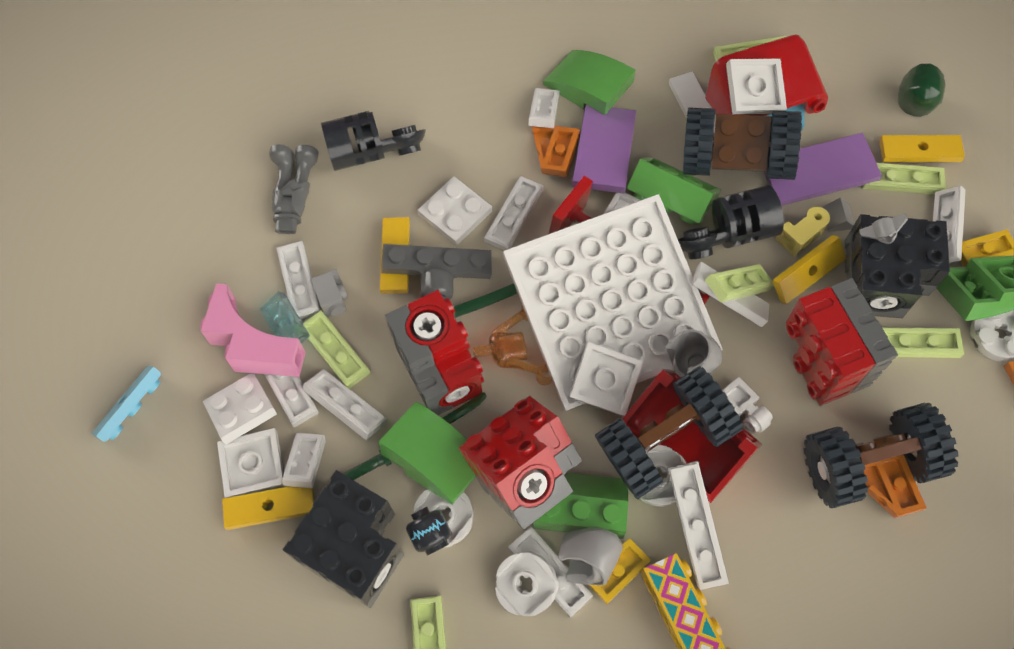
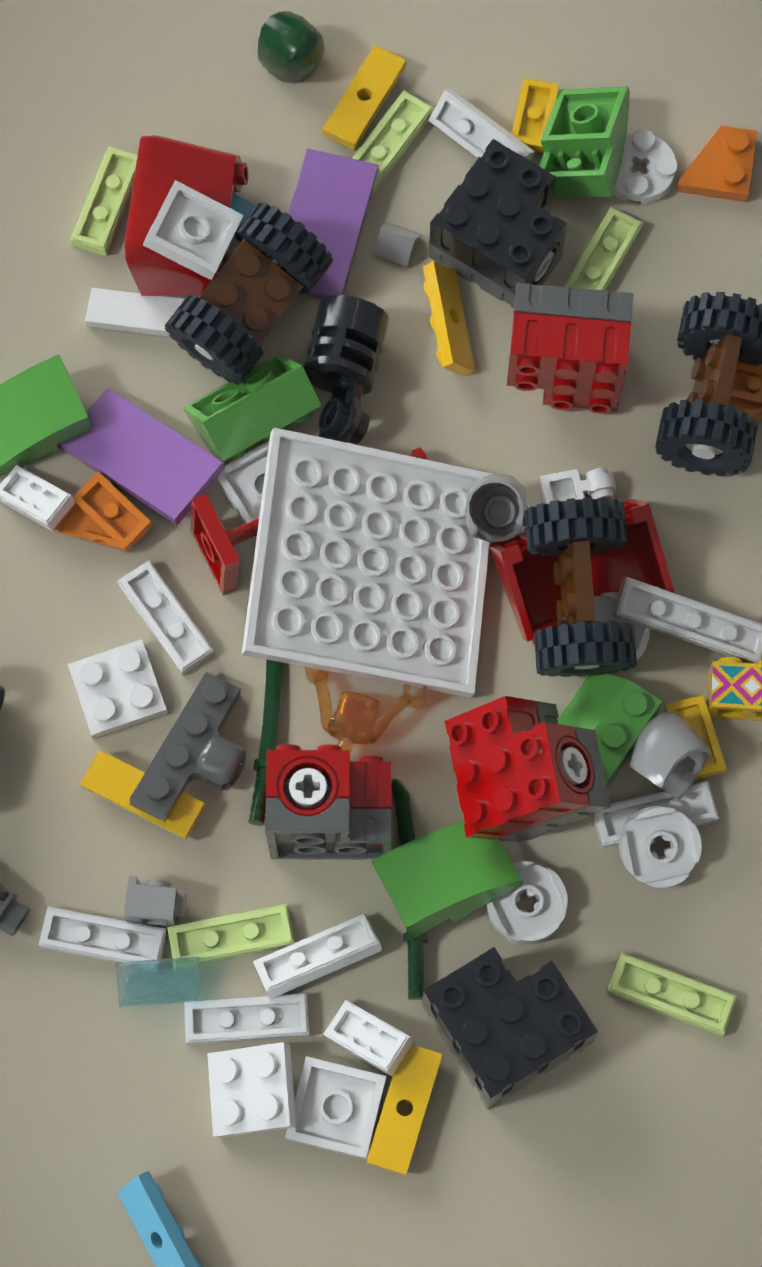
camera: 65 degrees left, 5 degrees up
(247, 347) = (182, 1035): bright pink arch -> none
(428, 531) = (546, 923): black head -> none
(606, 379) = (466, 624): white plate -> none
(739, 282) = (428, 405): yellowish green tile -> none
(750, 306) = (435, 423): white tile -> none
(805, 232) = (395, 284): light yellow leg -> none
(884, 229) = (472, 210): light grey piece -> none

